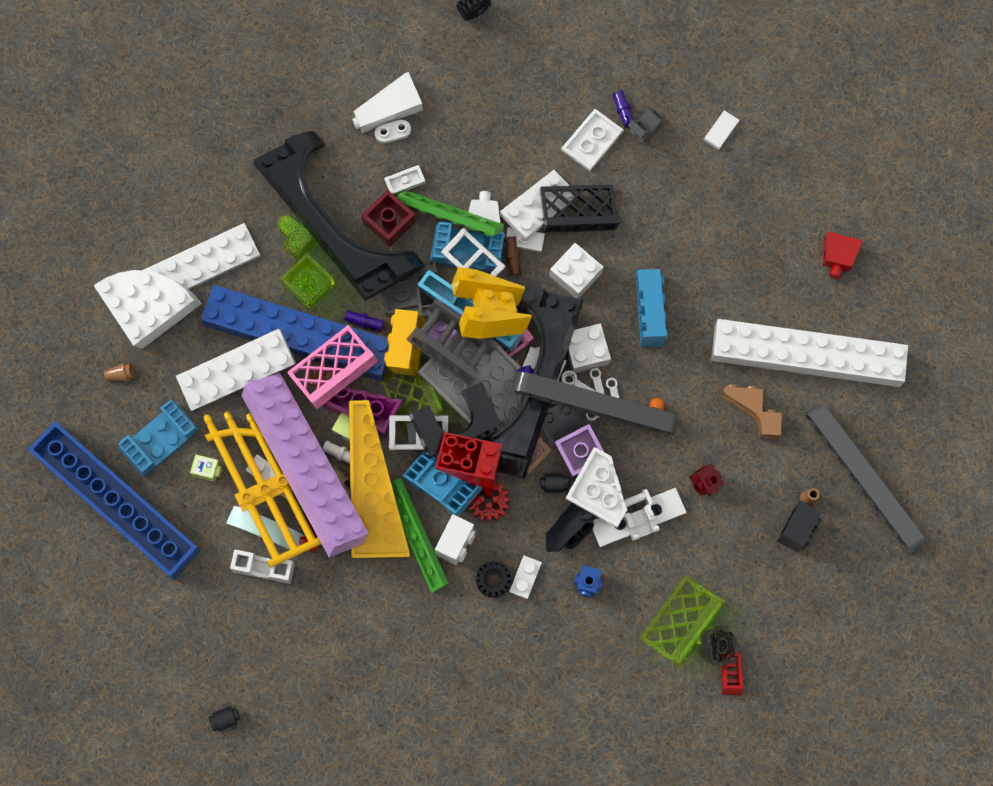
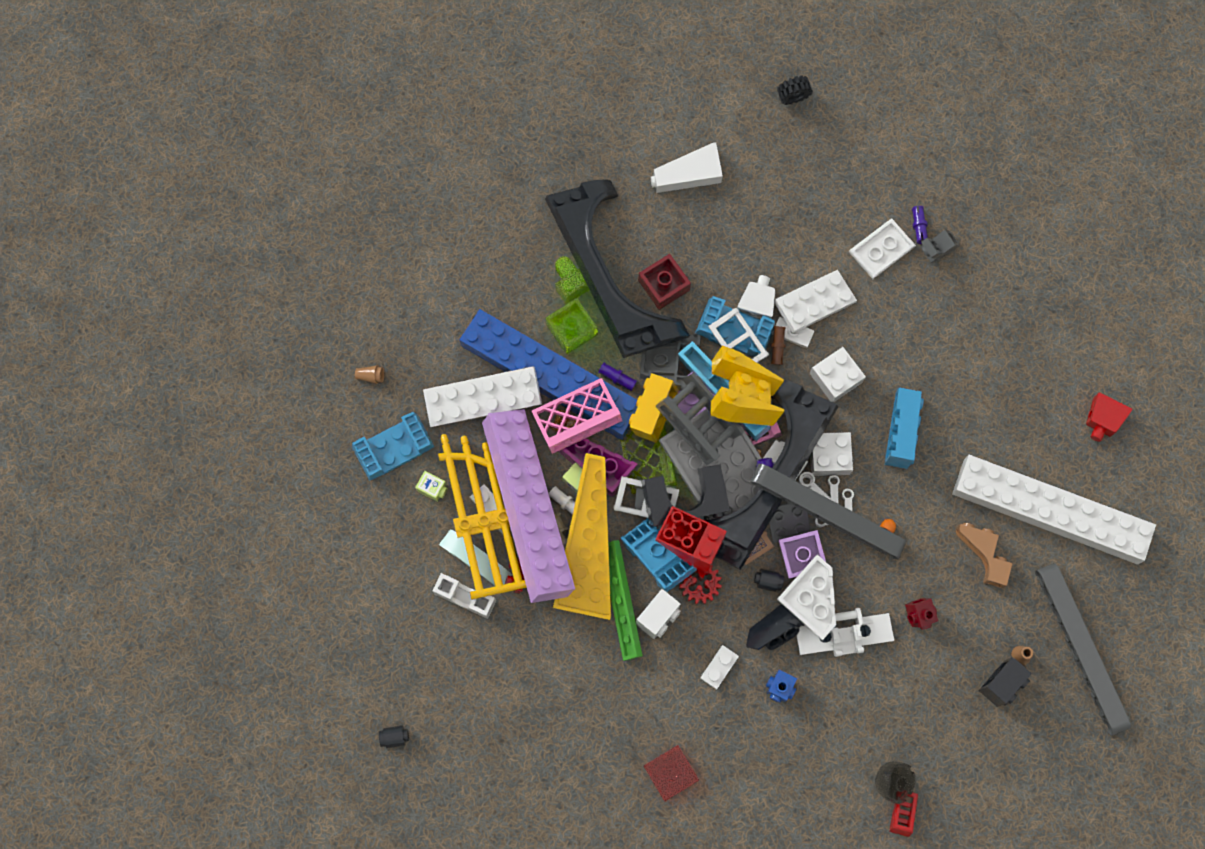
camera: 15 degrees right, 0 degrees up
(114, 500) = (336, 498): blue brick -> none
(145, 303) = (410, 312): white brick -> none
(209, 258) = (472, 285): white plate -> none
(393, 133) = (688, 198): white plate -> none
(405, 180) = (688, 248): white plate -> none
(451, 213) = (731, 294): bright green plate -> none
(496, 591) = (691, 650): black tyre -> none
(501, 689) = (671, 773): none -> clear red plate
(581, 222) = (856, 328): black fence -> none
(690, 639) = (884, 756): clear neon green fence -> none
(721, 130) = (1013, 267): white tile -> none

